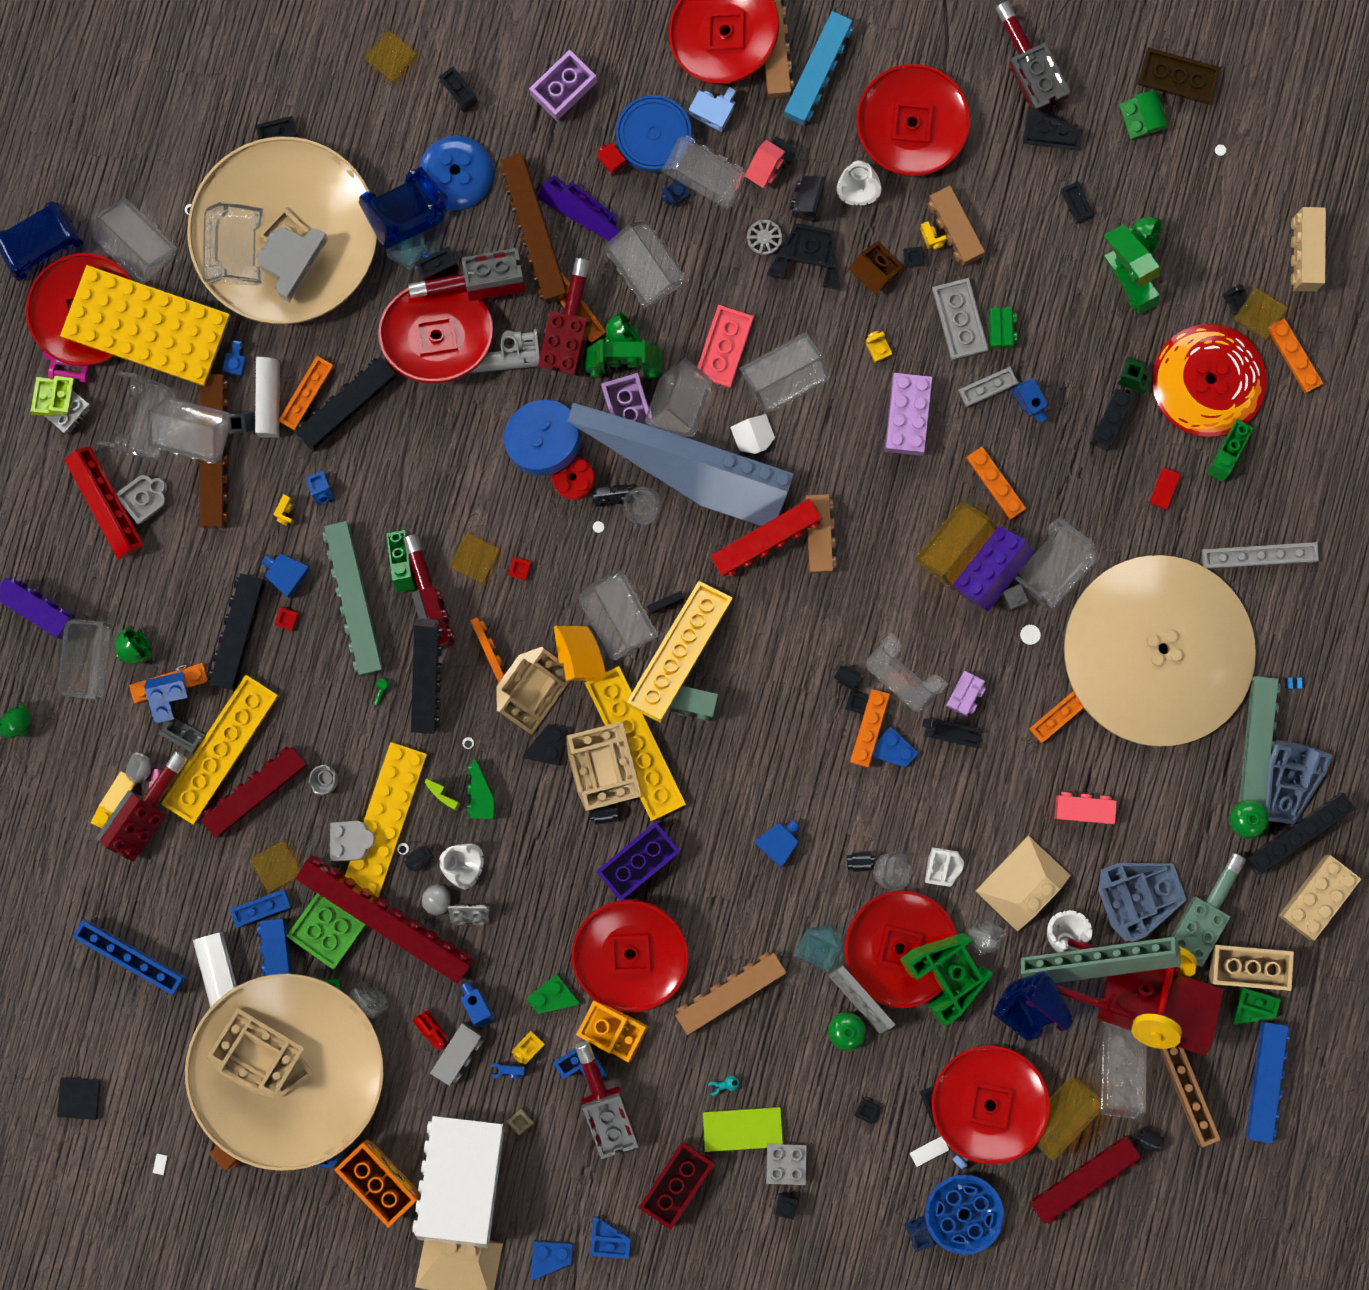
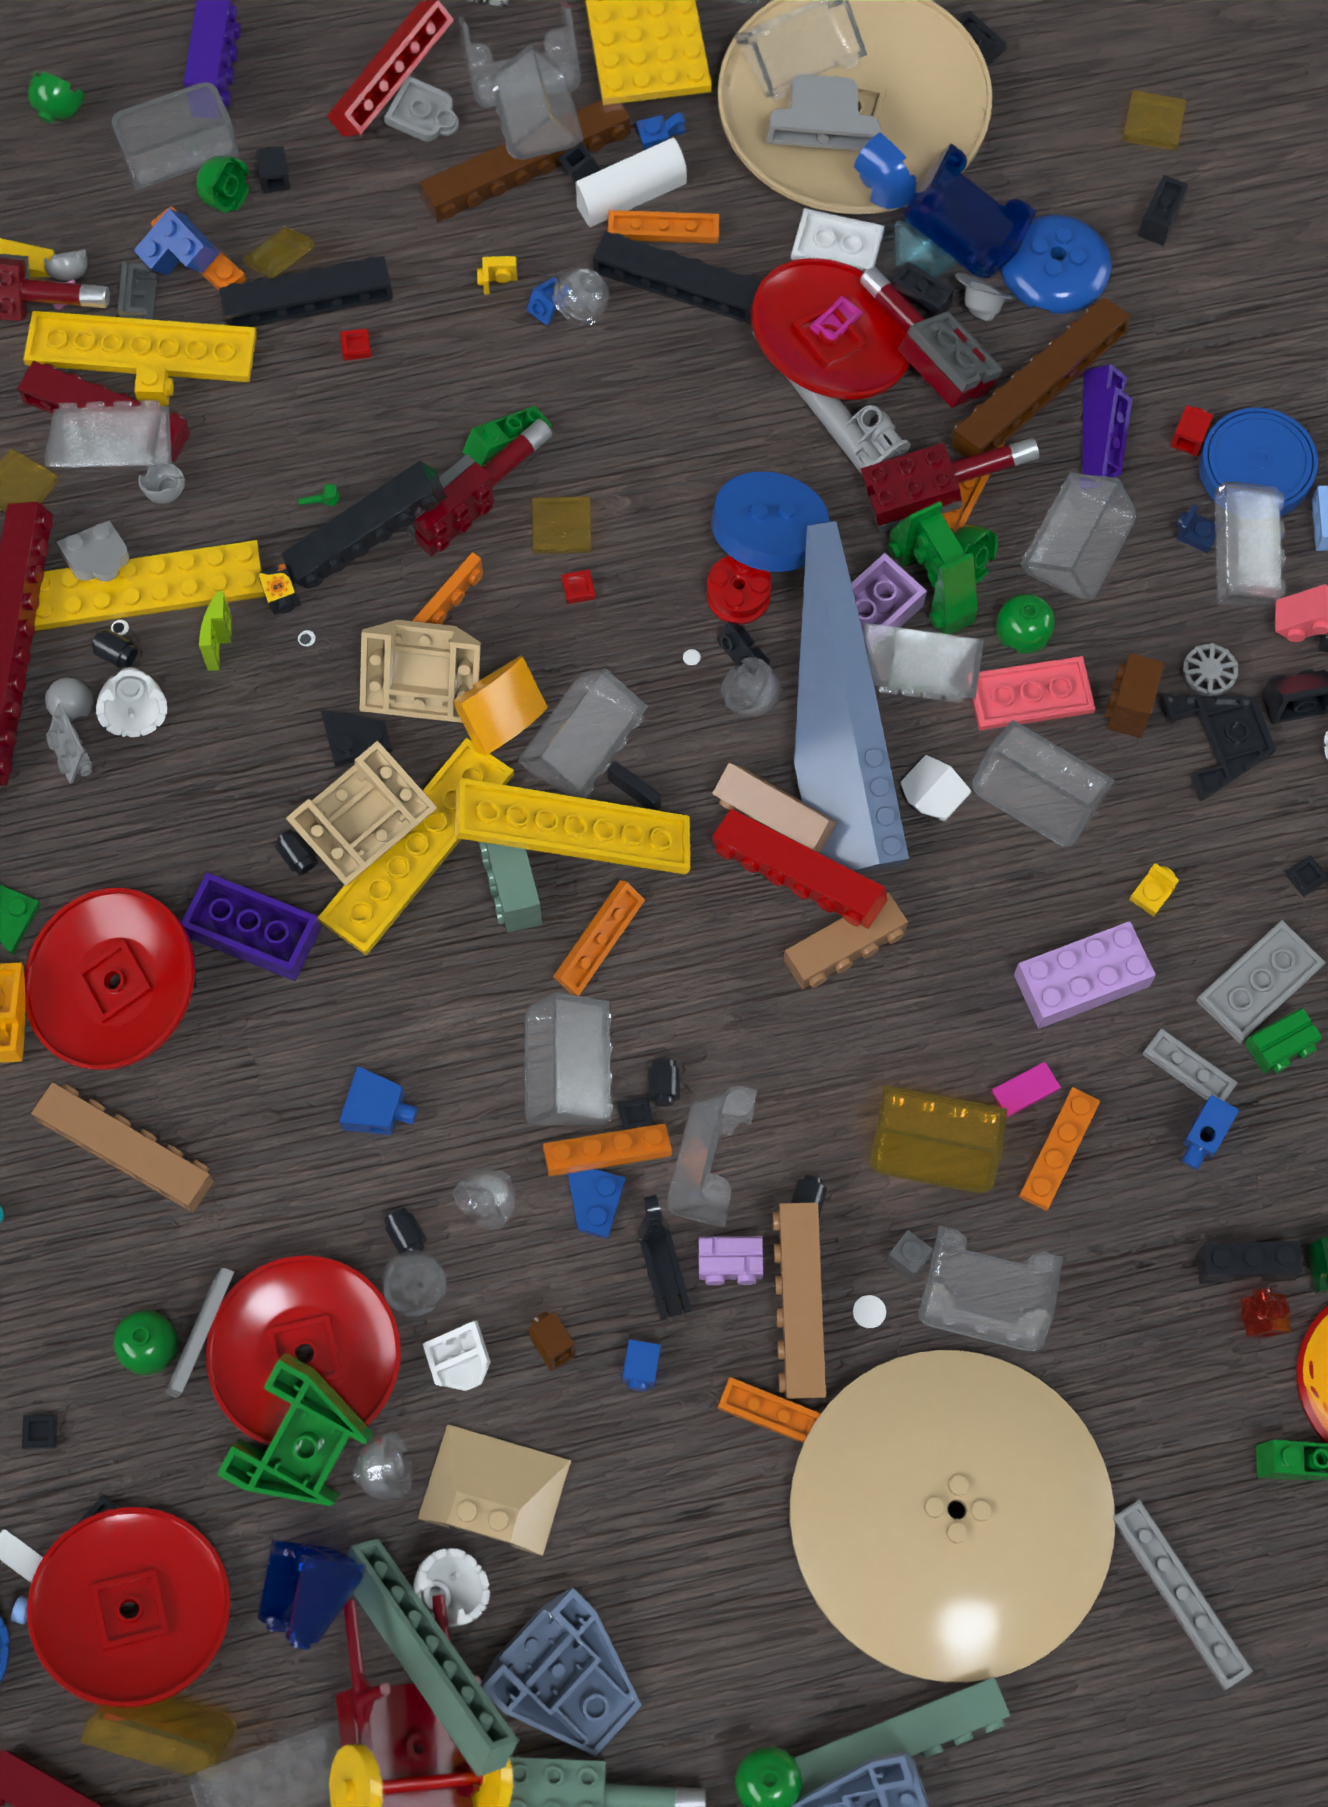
camera: 55 degrees right, 15 degrees down
(136, 609) = (273, 169): none -> black brick
(200, 635) = (279, 252): none -> clear yellow tile
(255, 755) = (153, 384): none -> yellow brick
(282, 799) = (109, 435): none -> clear windscreen
(285, 573) = (413, 312): blue torso -> none
(330, 468) = (581, 295): none -> clear cylinder
(353, 598) = (424, 405): sand green brick -> none
(356, 245) = (885, 172): none -> blue brick
(373, 294) = (837, 239): none -> white tile
(426, 313) = (849, 310): none -> dark pink tile
(432, 744) = (279, 589): none -> brick
(457, 229) = (981, 297): none -> light grey piece
(482, 798) = (240, 685): green slope -> none
(563, 85) = (1249, 324): lavender brick -> none
(680, 325) = (1025, 623): none -> green cylinder
(722, 531) = (773, 807): none -> brick
(745, 669) = (599, 938): none -> orange plate
(761, 291) = (1133, 695): none -> reddish brown brick
(810, 725) = (568, 1061): none -> clear windscreen
(819, 947) = (250, 1234): clear light blue slope -> none
(864, 806) = (488, 1196): none -> clear cylinder
(875, 267) = (1261, 830): reddish brown slope -> none
(954, 482) = (1026, 1089): none -> dark pink tile
(954, 634) = (810, 1191): none -> black brick
(963, 812) = (552, 1340): none -> reddish brown brick
(993, 568) = (934, 1200): dark purple brick -> none
(999, 772) = (641, 1365): none -> blue brick
(1007, 667) = (801, 1301): none -> medium nougat brick
(1085, 808) = (654, 1523): coral brick -> none
(1143, 427) = (1265, 1314): none -> clear red brick
(1164, 488) = (1195, 1395): red tile -> none
(1294, 683) = (1020, 1753): sticker -> none

